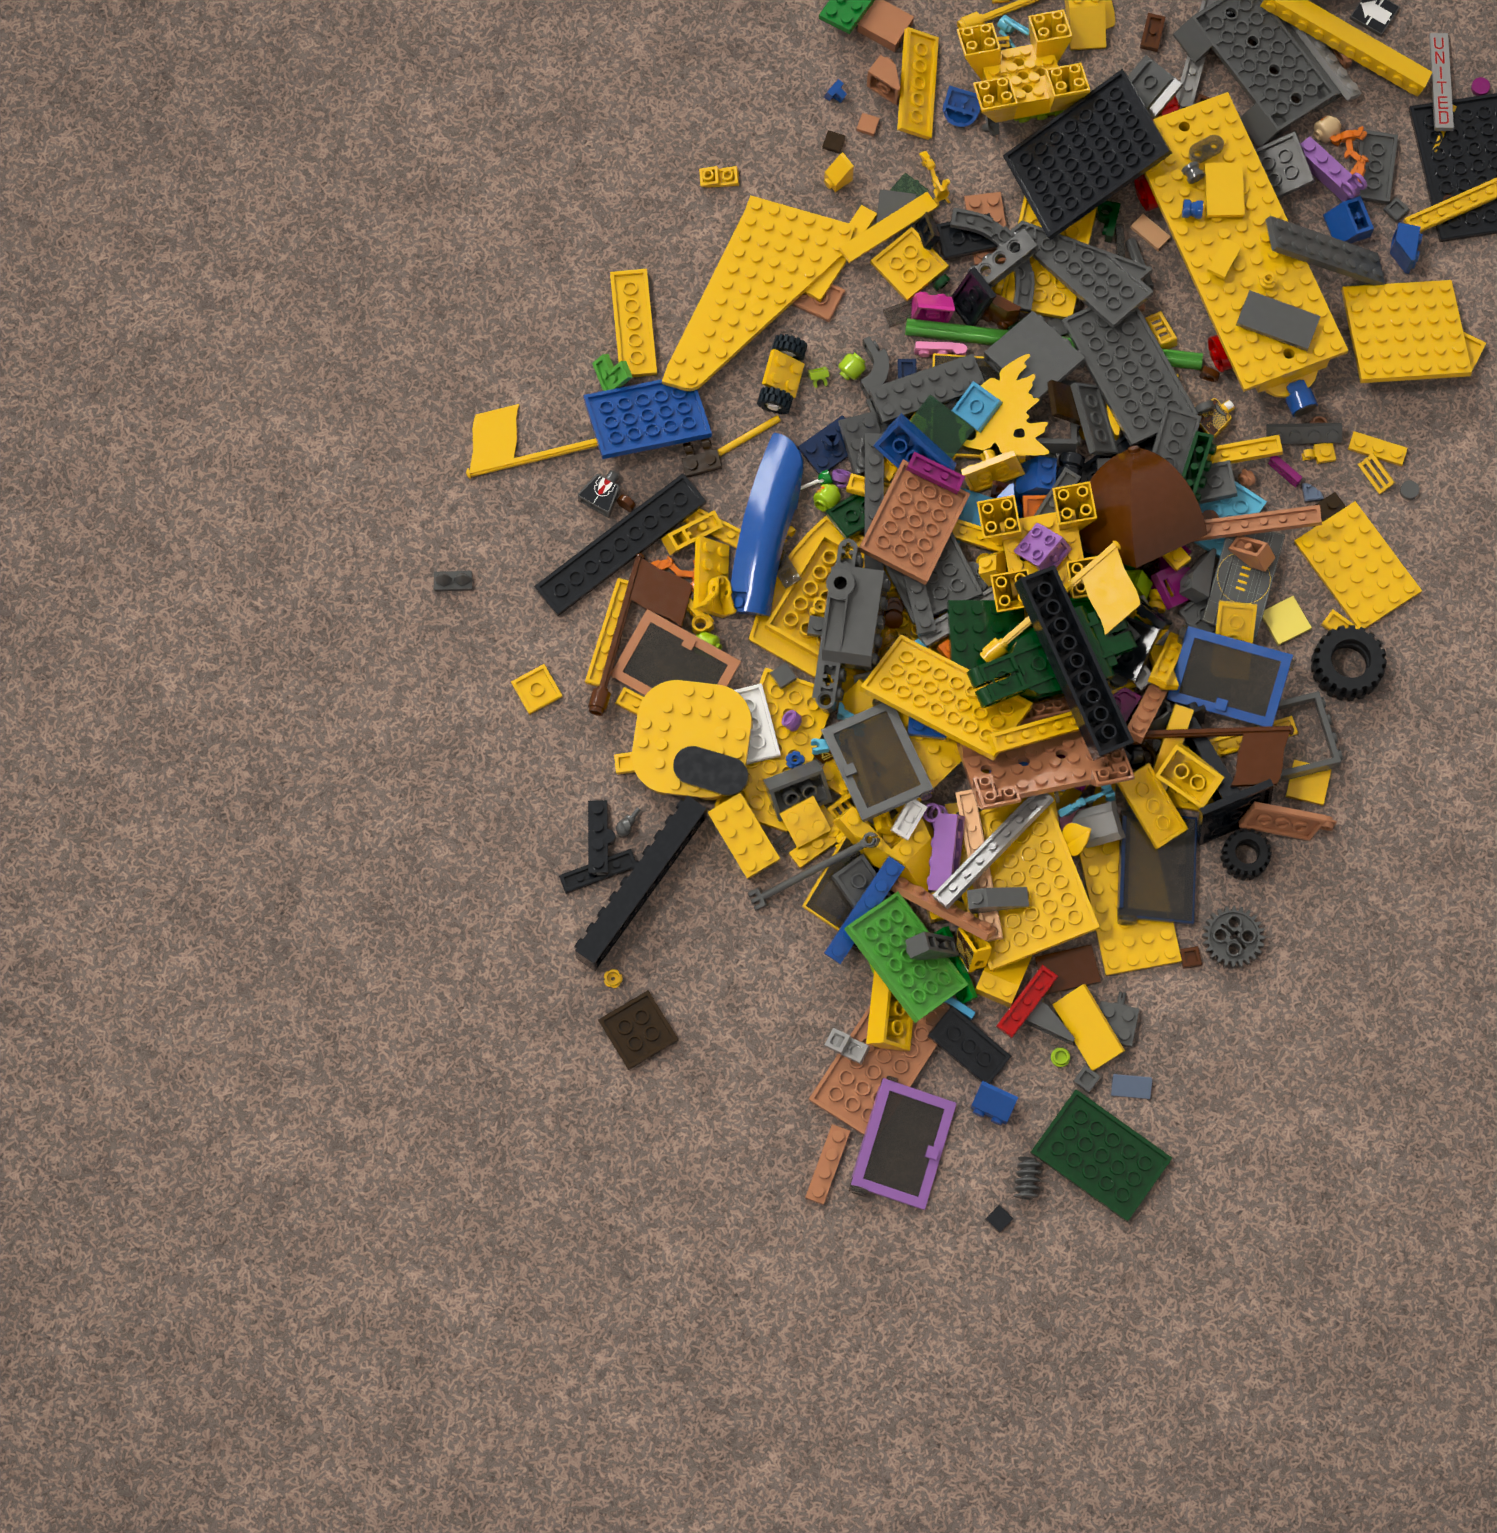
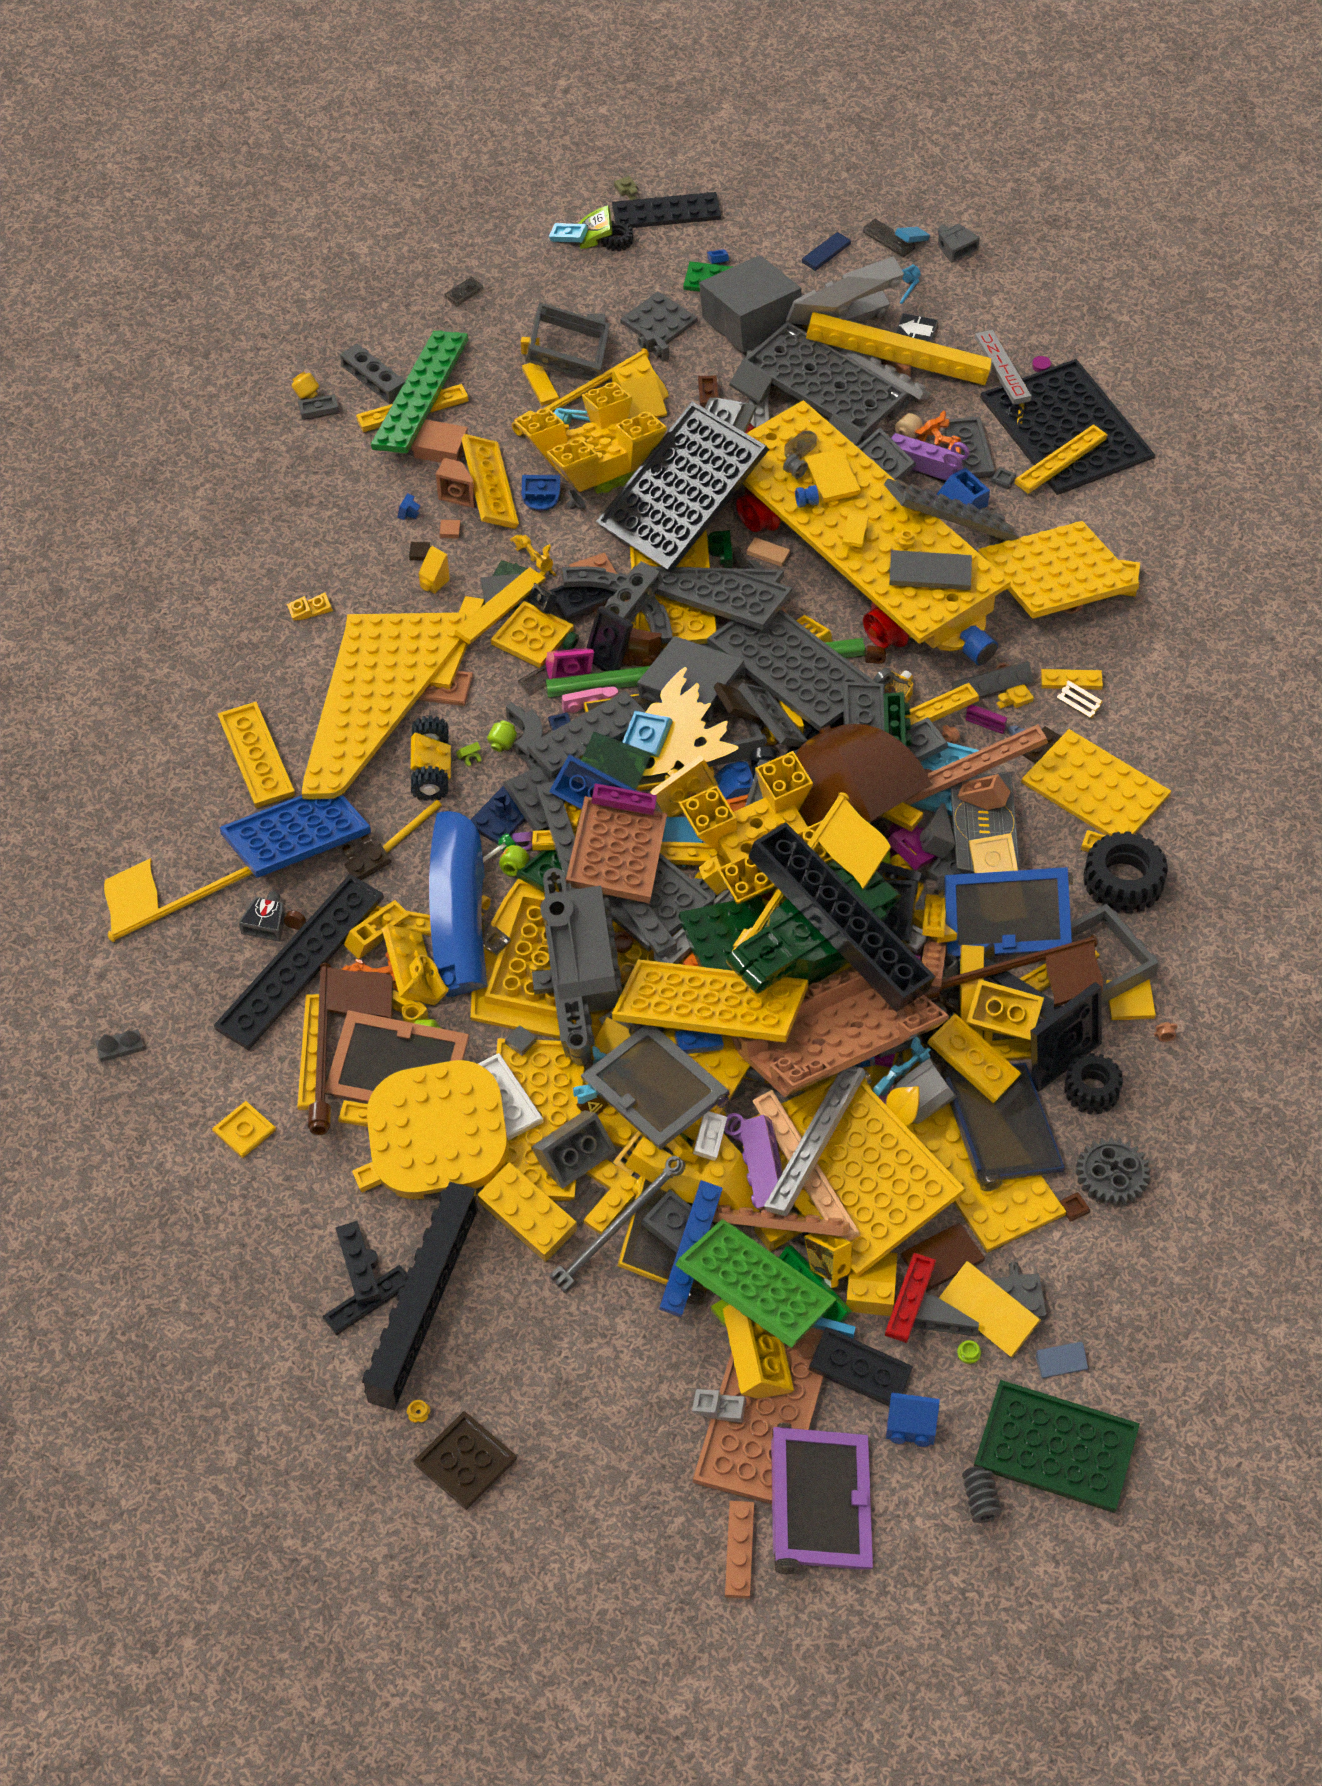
camera: 15 degrees left, 20 degrees down
(609, 375) = (245, 804): bright green plate -> none
(624, 825) = (385, 1242): dark grey piece -> none
(710, 771) = (468, 1149): black tile -> none
(791, 720) = (544, 1080): medium lavender tile -> none
(794, 755) = (560, 1114): blue plate -> none
(805, 821) = (592, 1178): yellow plate -> none
(893, 618) = (626, 951): reddish brown tile -> none
(931, 946) = (780, 1263): dark grey slope -> none
(997, 899) = (838, 1191): dark grey slope -> none
(999, 1218) = (964, 1552): black tile -> none
(1032, 732) = (822, 1002): yellow plate -> none
(1043, 547) = (759, 824): medium lavender bracket -> none
(1086, 1079) = (1008, 1366): dark grey plate -> none
(1282, 821) = (1120, 1035): nougat tile -> none
(1285, 620) = (1043, 852): light yellow tile -> none
(1405, 246) = (1026, 499): blue slope -> none
(1409, 490) = (1119, 707): dark grey tile -> none

